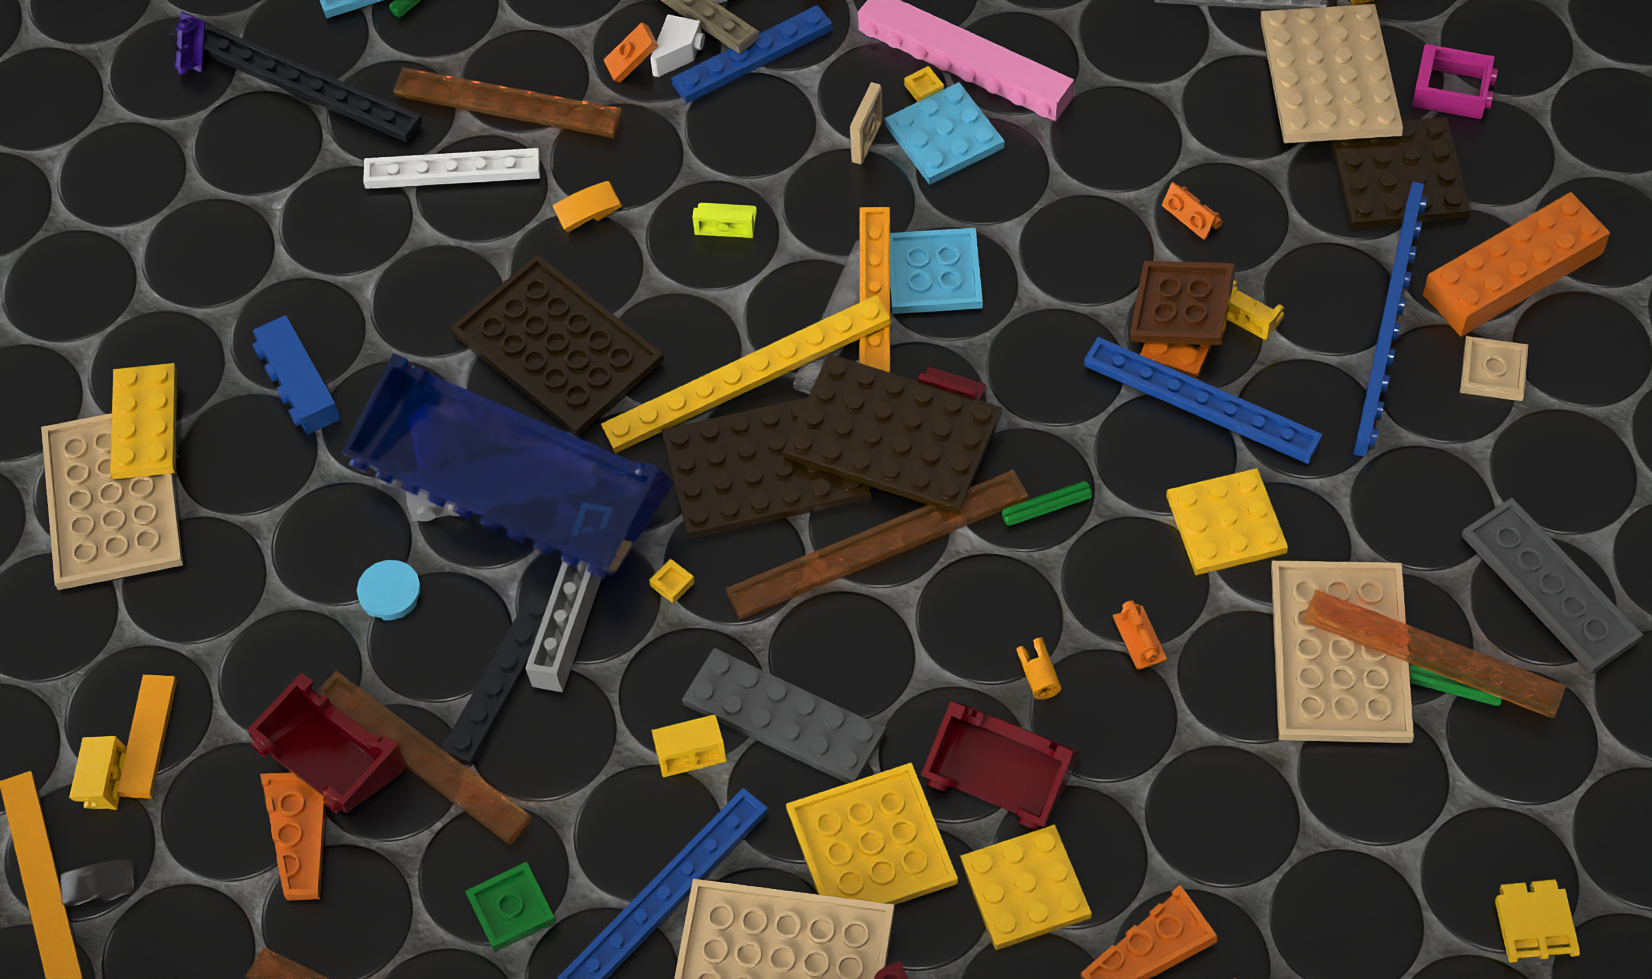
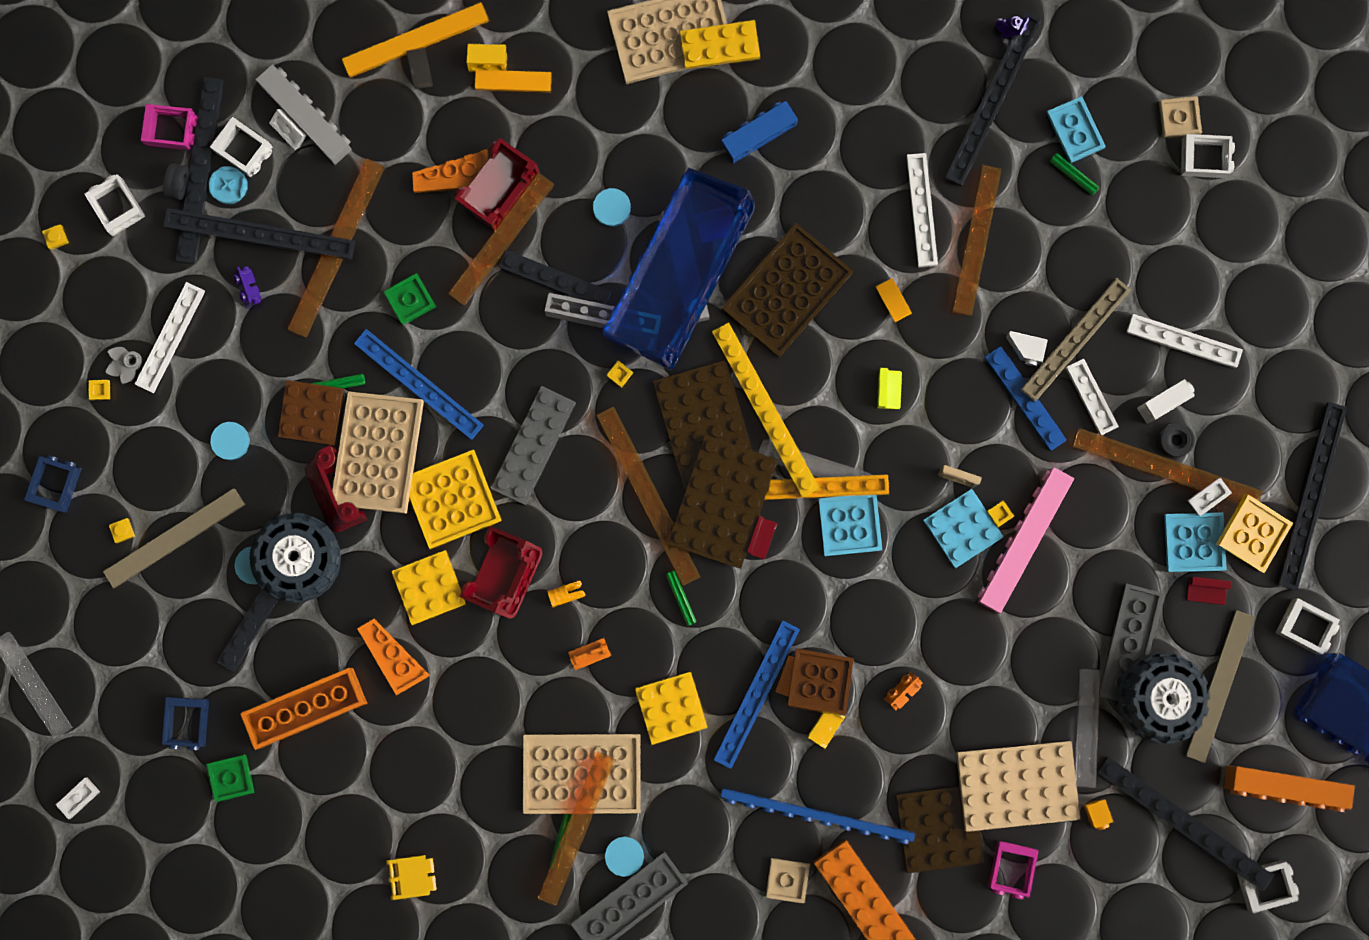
camera: 85 degrees right, 25 degrees up
(630, 52) = (1017, 317): orange plate -> none
(689, 745) = (511, 391): yellow hinge -> none
(1473, 593) = (624, 856): none -> medium azure tile

